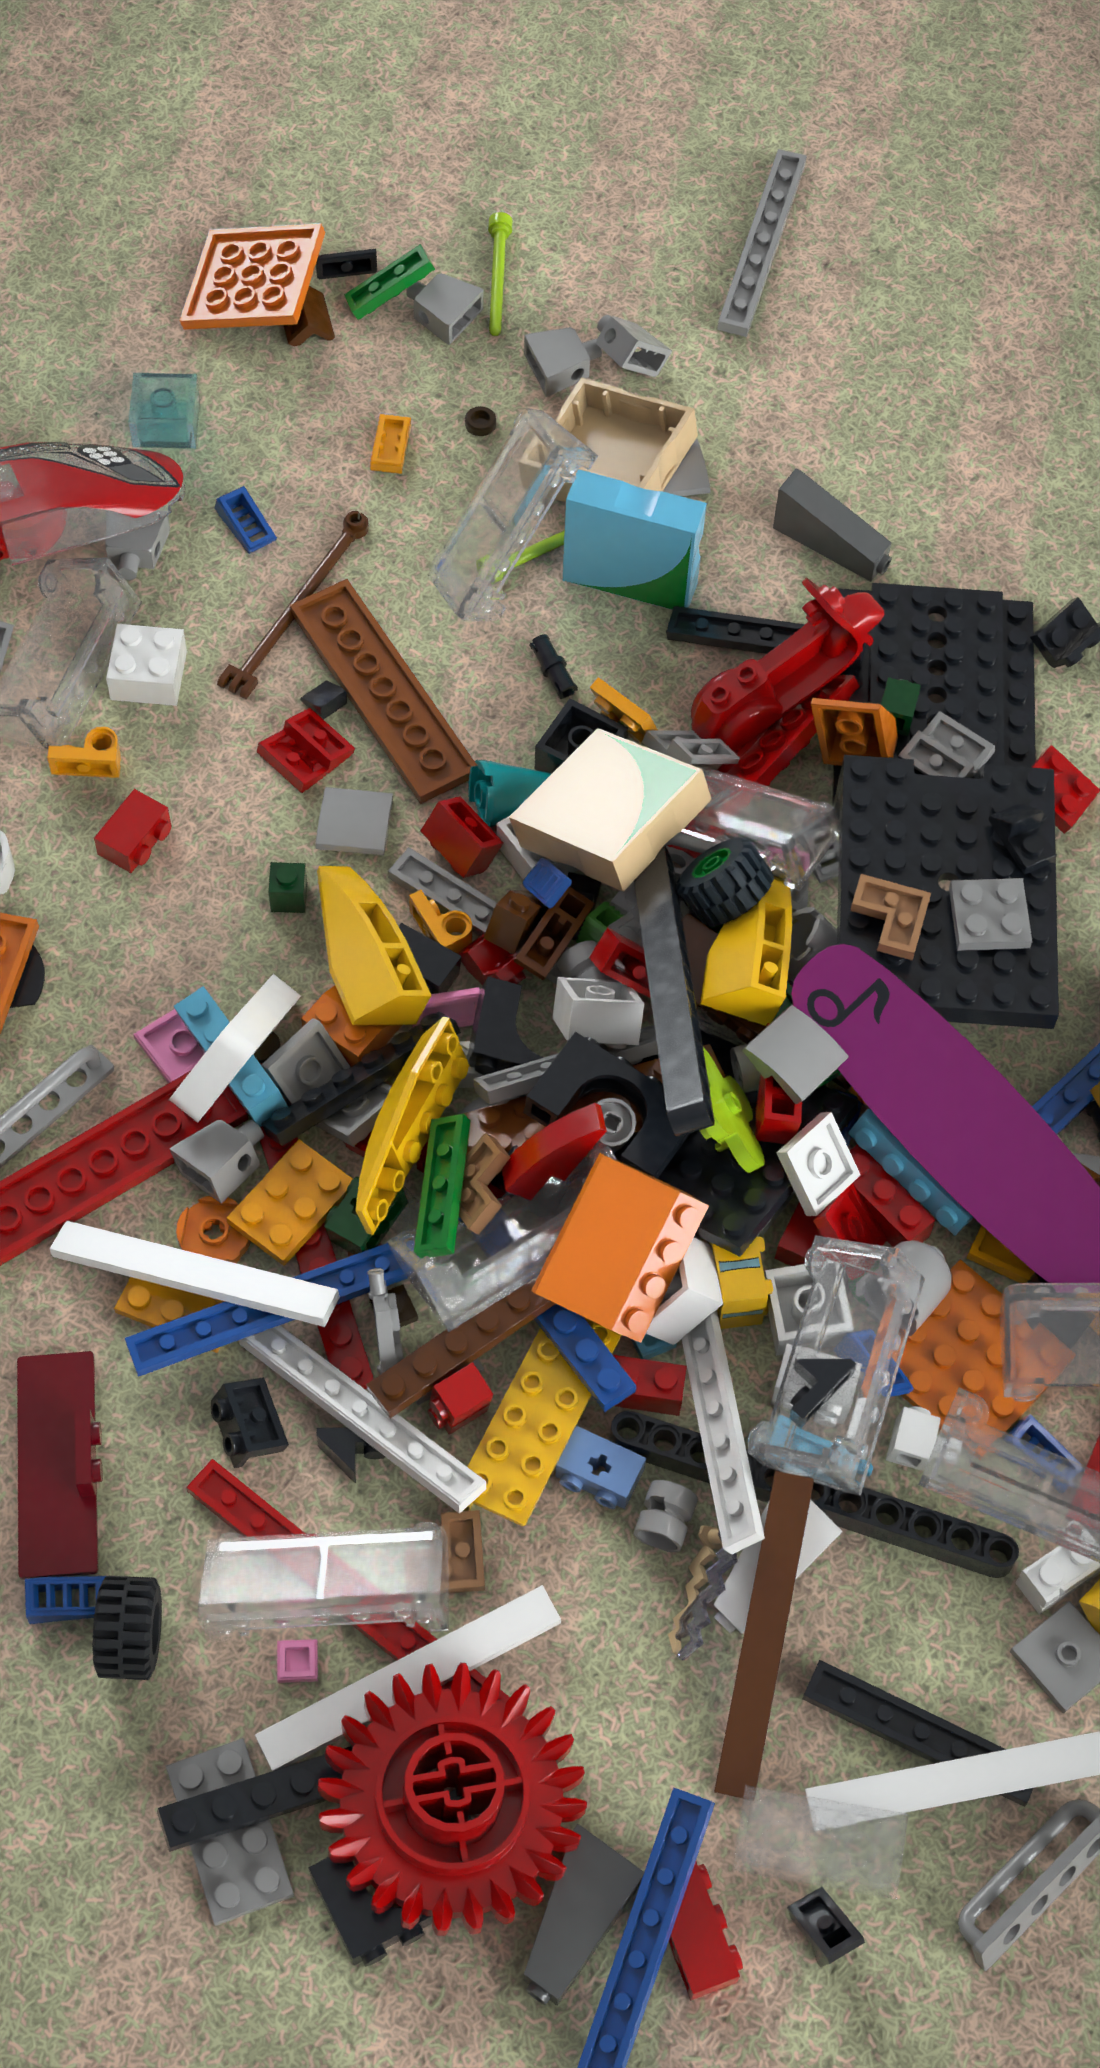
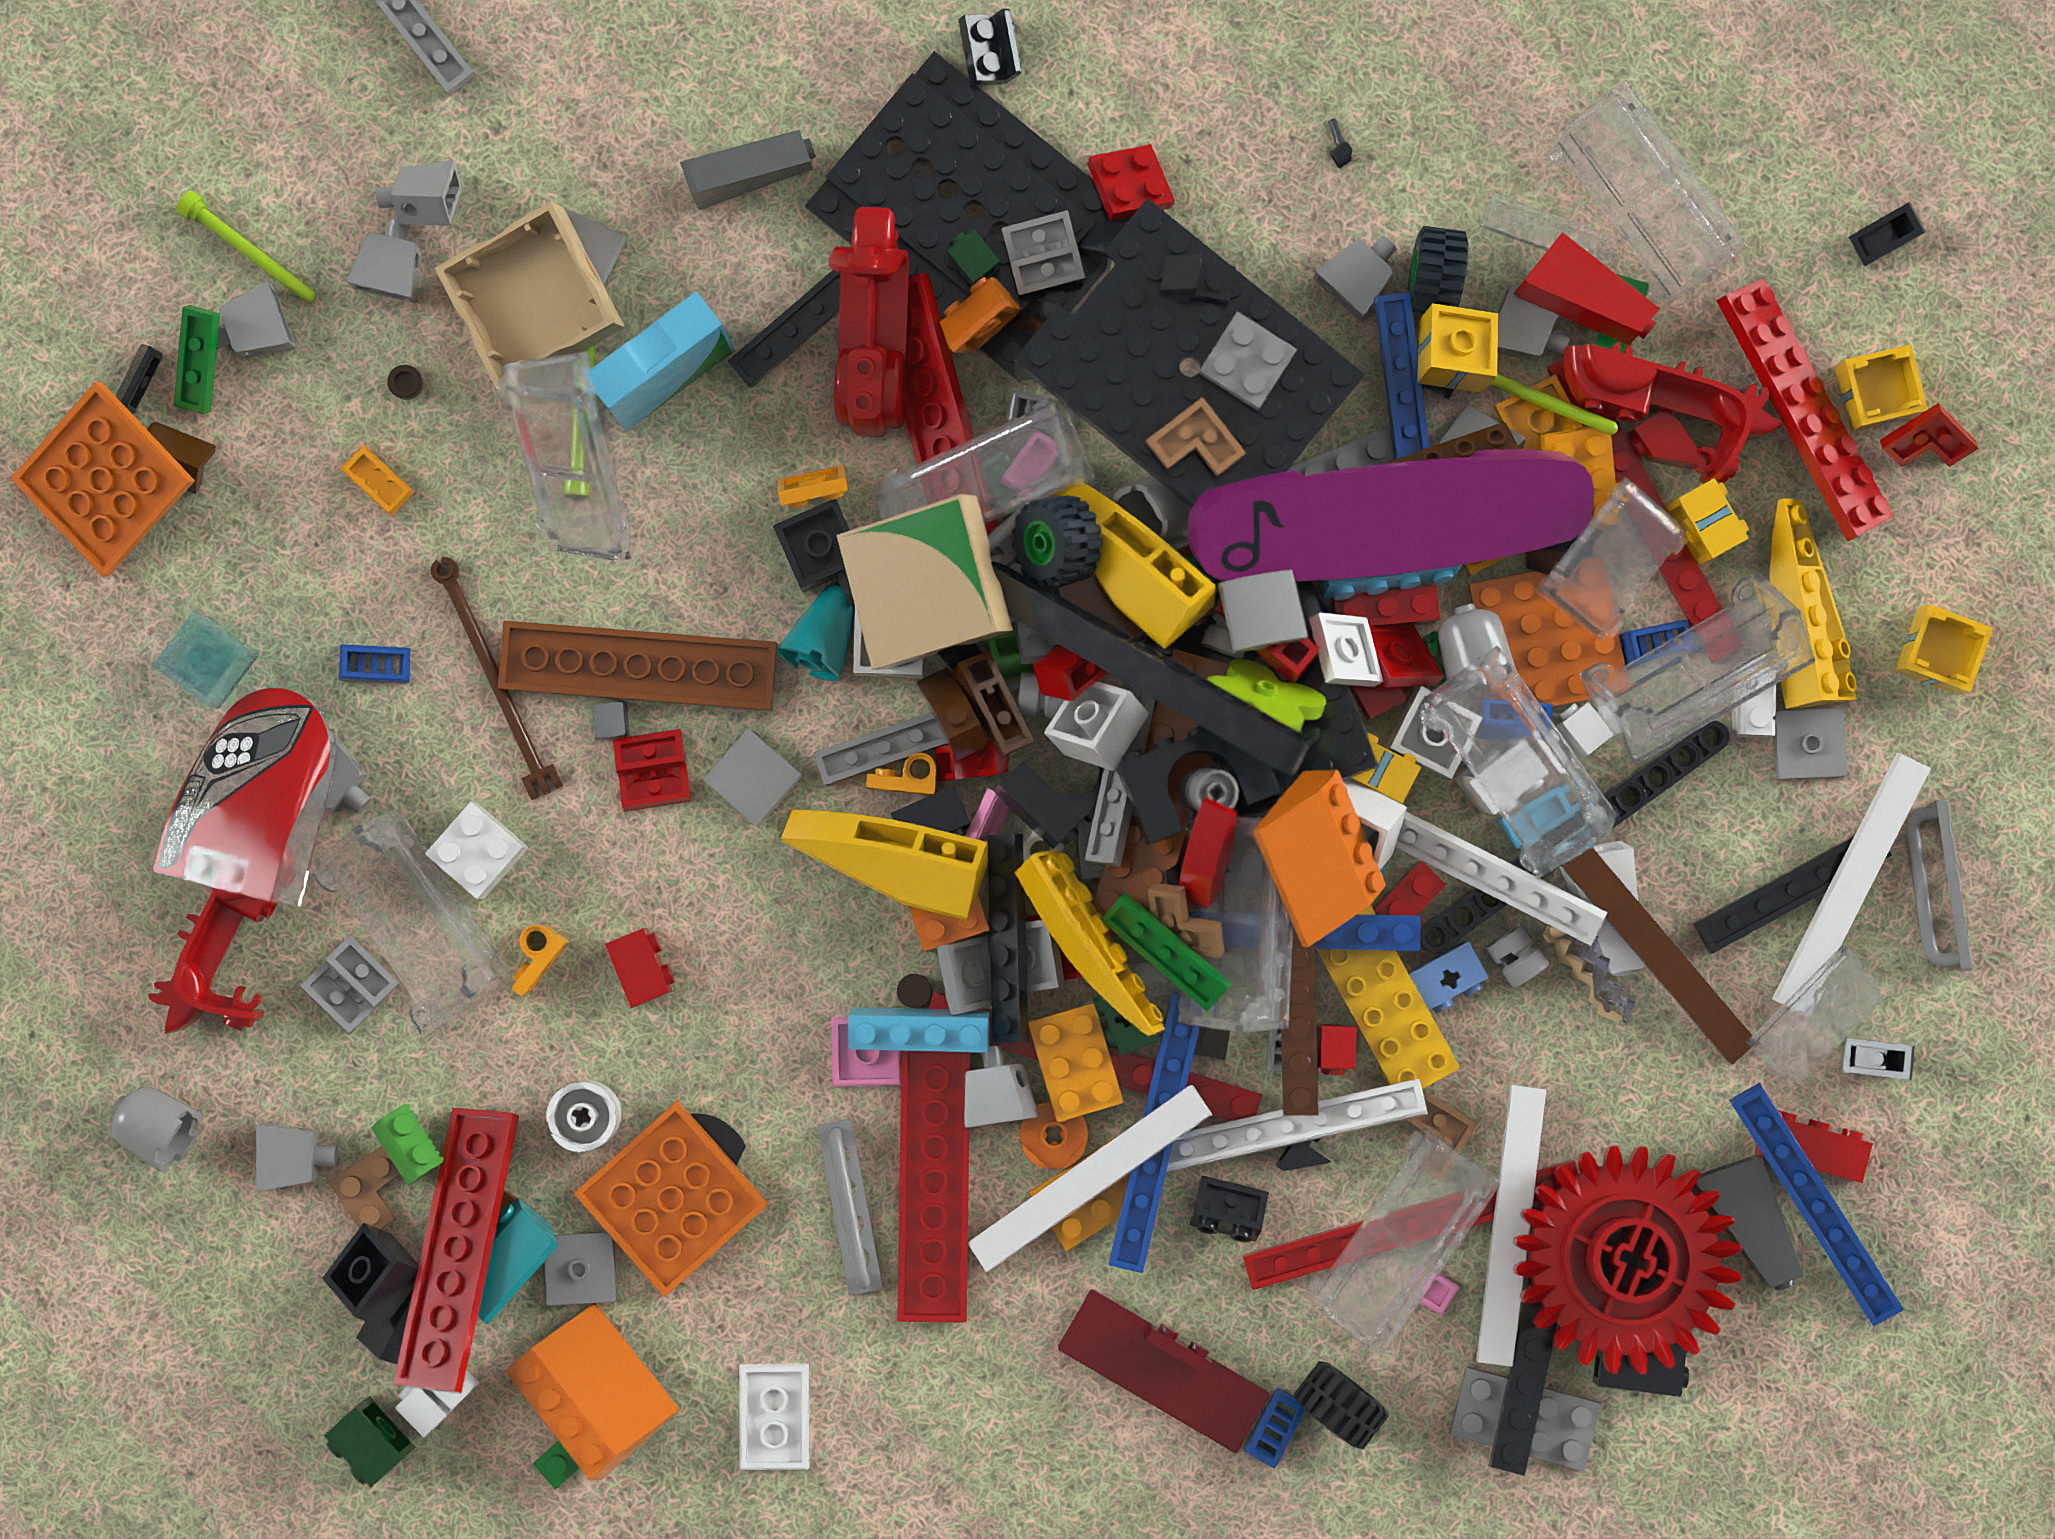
camera: 55 degrees left, 25 degrees up
(234, 1047) = (924, 1014): white beam -> none
(287, 887) = (784, 877): dark green brick -> none
(386, 1321) = (1221, 1057): light grey plate -> none
(461, 837) = (837, 704): red brick -> none
(546, 882) = (945, 674): blue slope -> none
(553, 666) = (715, 506): black pin -> none
(689, 747) = (888, 459): light grey slope -> none
(826, 1379) = (1527, 779): black slope -> none

